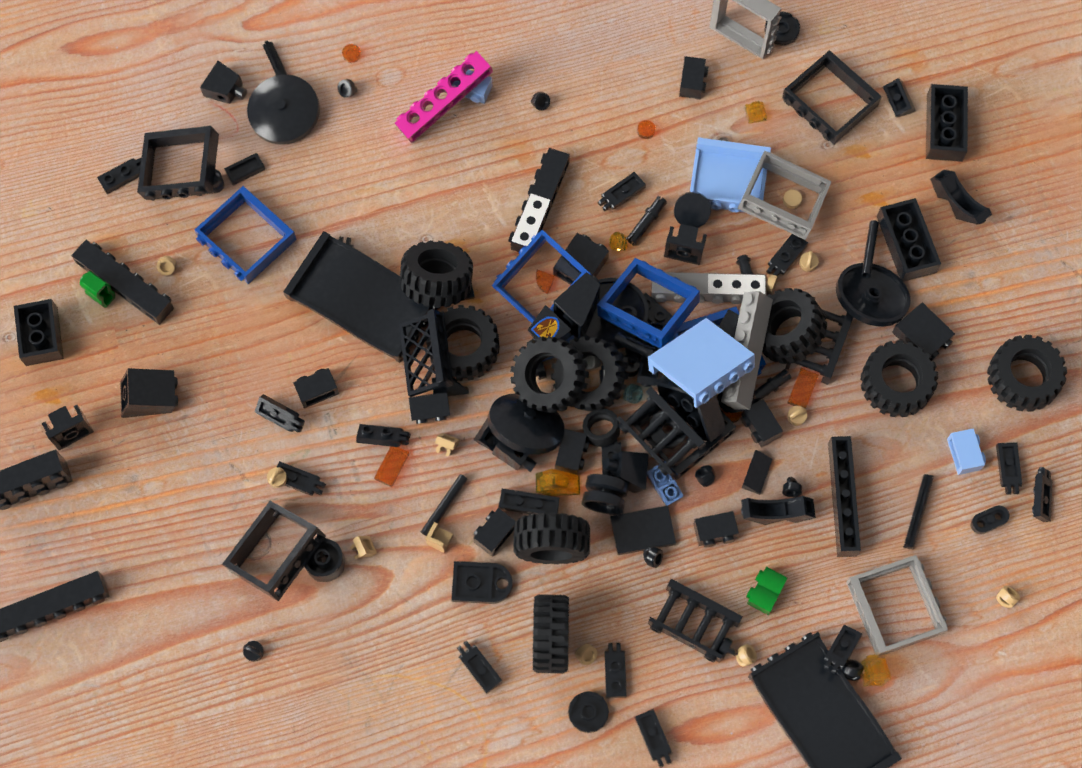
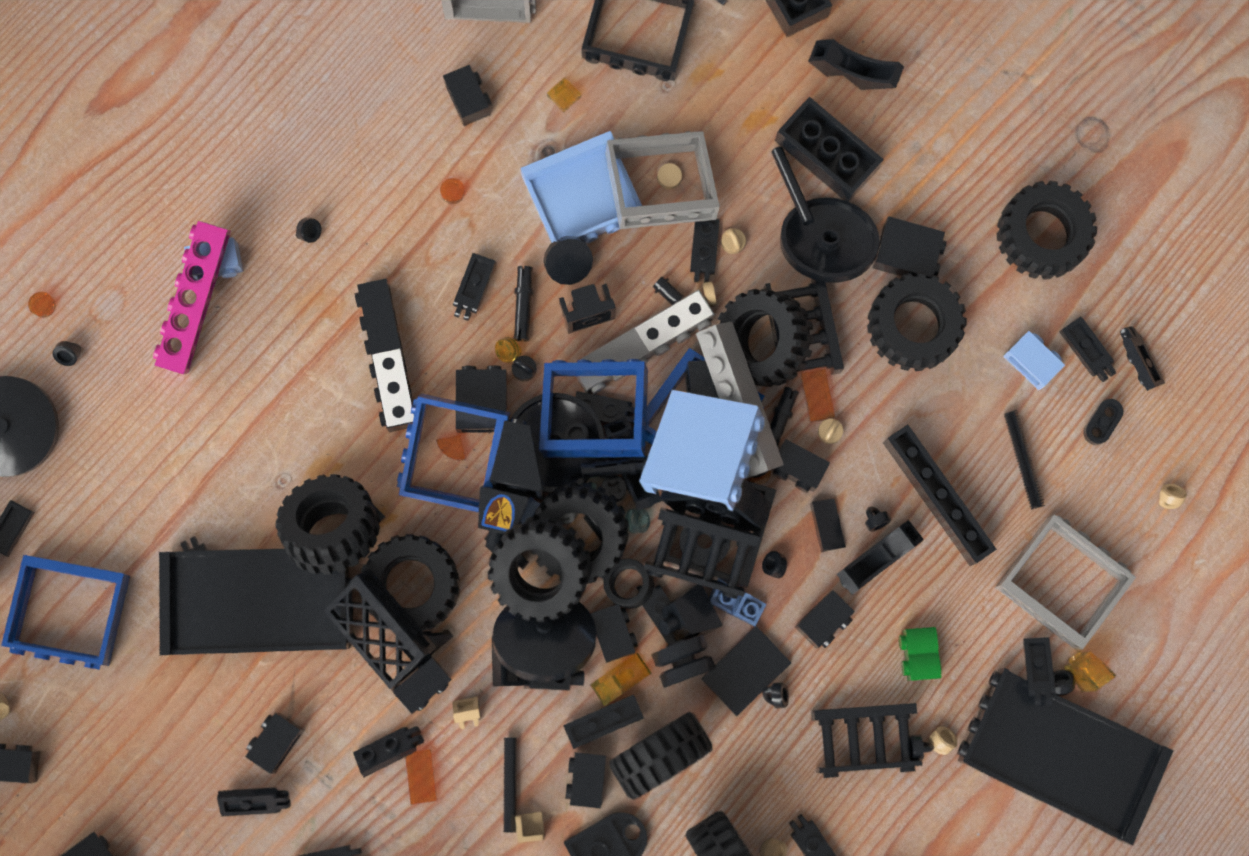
camera: 40 degrees left, 10 degrees up
(621, 260) = (524, 368): none -> black tile

